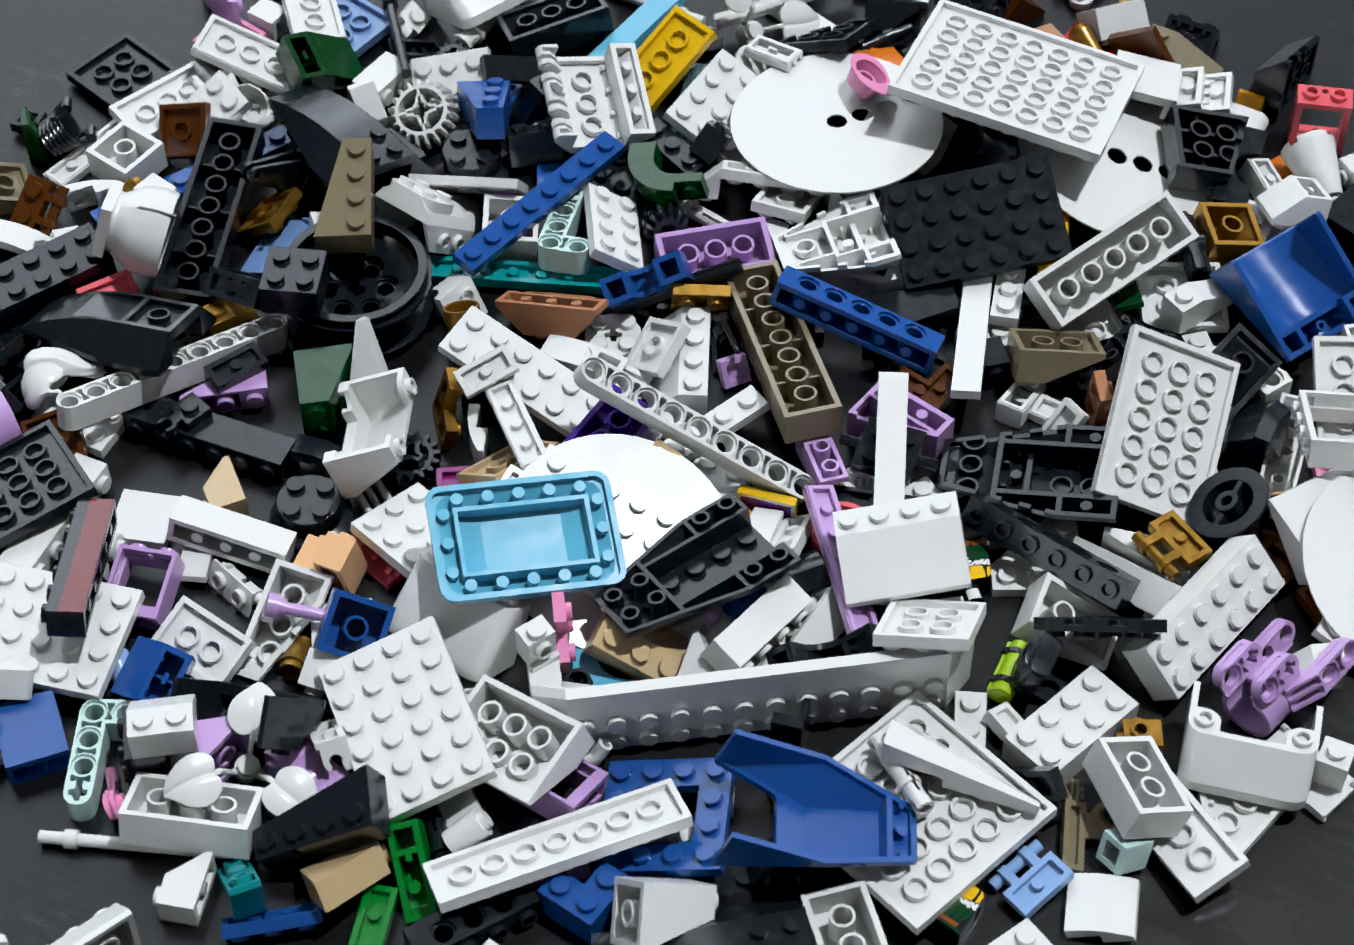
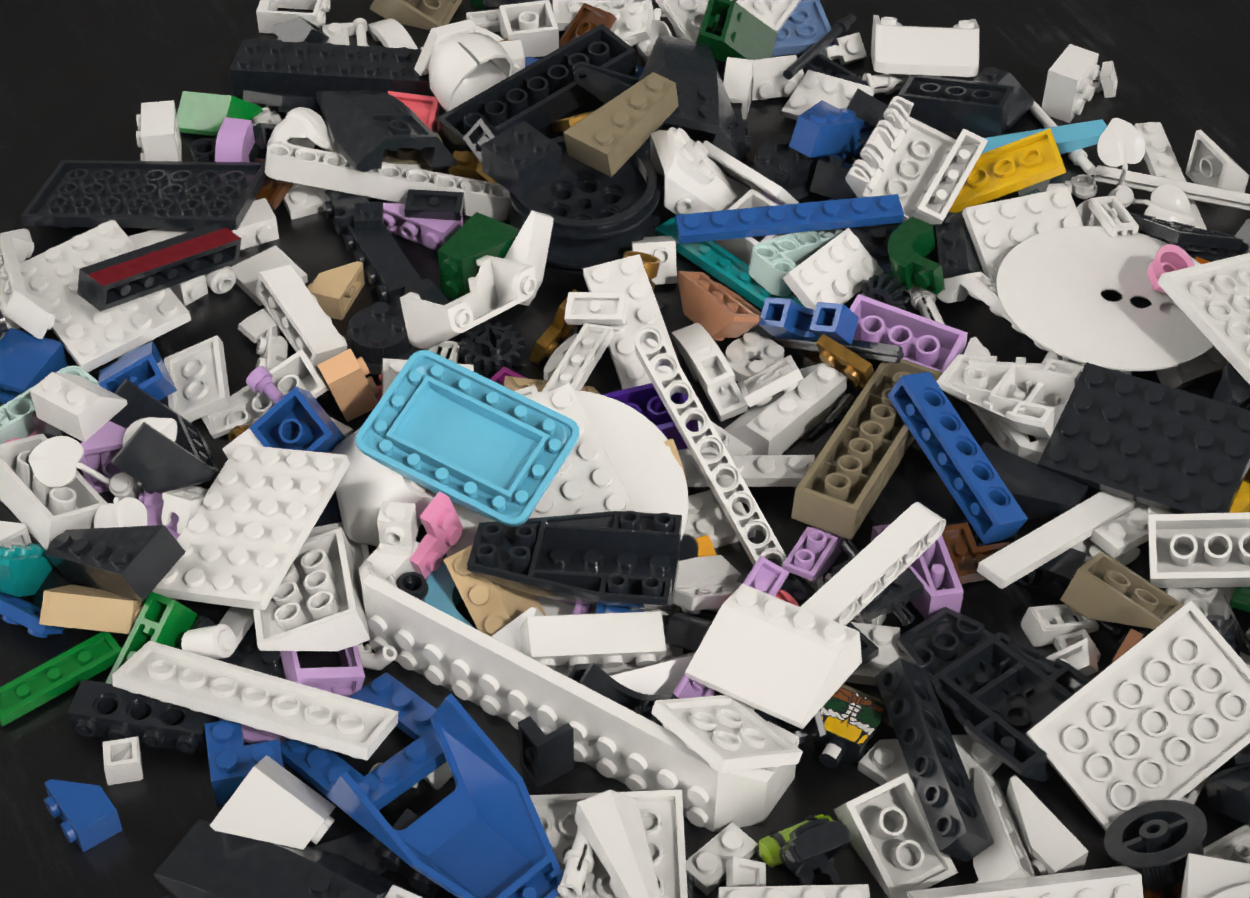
camera: 40 degrees right, 5 degrees down
(34, 202) = (437, 17): reddish brown plate -> none
(141, 555) = (223, 324): lavender window -> none
(444, 113) = (775, 107): white gear -> none
(711, 141) = (983, 252): black brick -> none
(733, 370) = (818, 437): lavender tile -> none
(761, 498) = (732, 552): tile -> none
(791, 207) = (1001, 338): white plate -> none
(1101, 626) = (901, 851): black plate -> none
(1178, 539) = (1069, 833): pearl gold plate -> none

